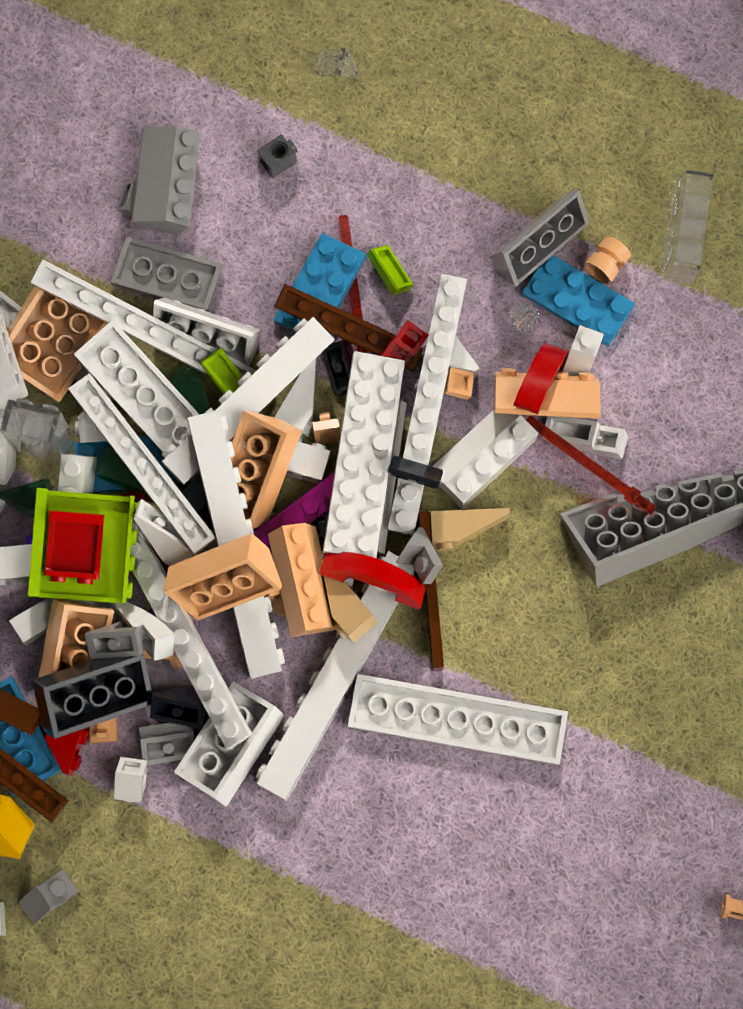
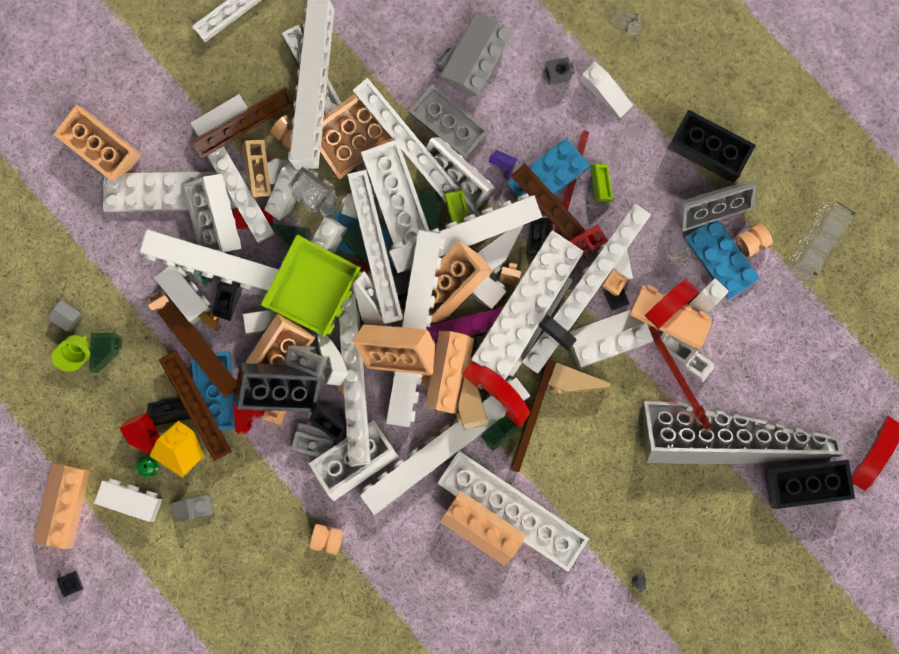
camera: 20 degrees right, 5 degrees up
(74, 546) = (305, 284): red panel -> none
(130, 779) = (278, 455): white brick -> none
(237, 858) = (326, 539): none -> light nougat wheel
(257, 294) = (503, 161): none -> dark purple tile
(345, 155) = (605, 89): none -> white slope
(399, 627) = (500, 432): none -> clear green slope
(422, 556) = (537, 391): light grey slope -> none
(429, 757) = (483, 528): none -> light nougat slope
(473, 406) = (616, 302): none -> black tile
(504, 169) = (711, 146): none -> black brick
(653, 737) = (639, 581): none -> dark grey hinge

